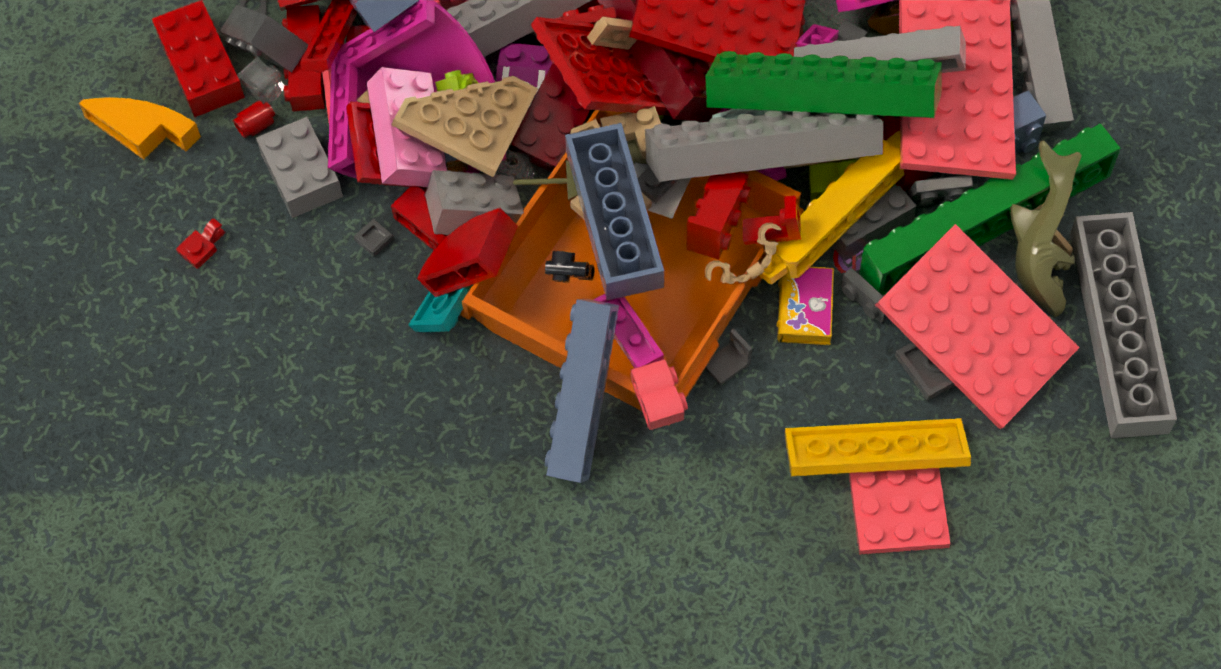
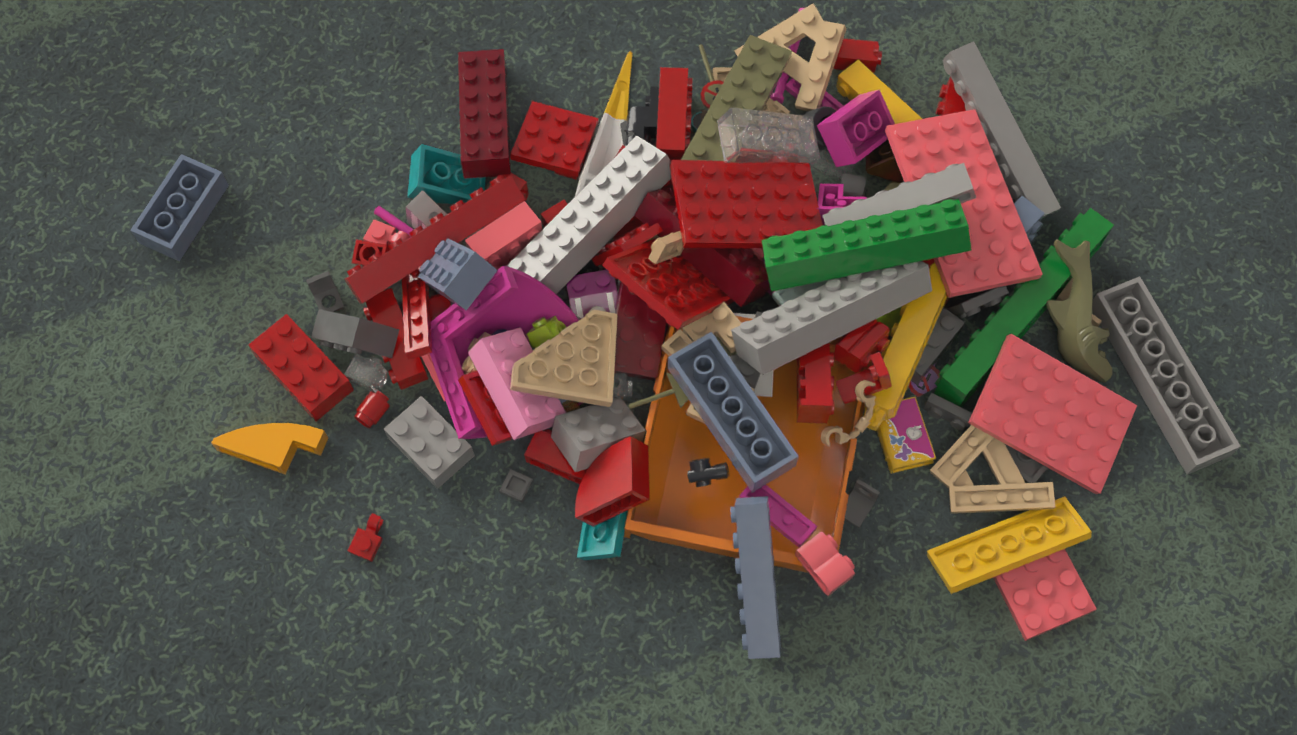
camera: 20 degrees left, 5 degrees up
(772, 186) = (858, 345): none -> red brick
(898, 398) = (1009, 495): none -> tan plate

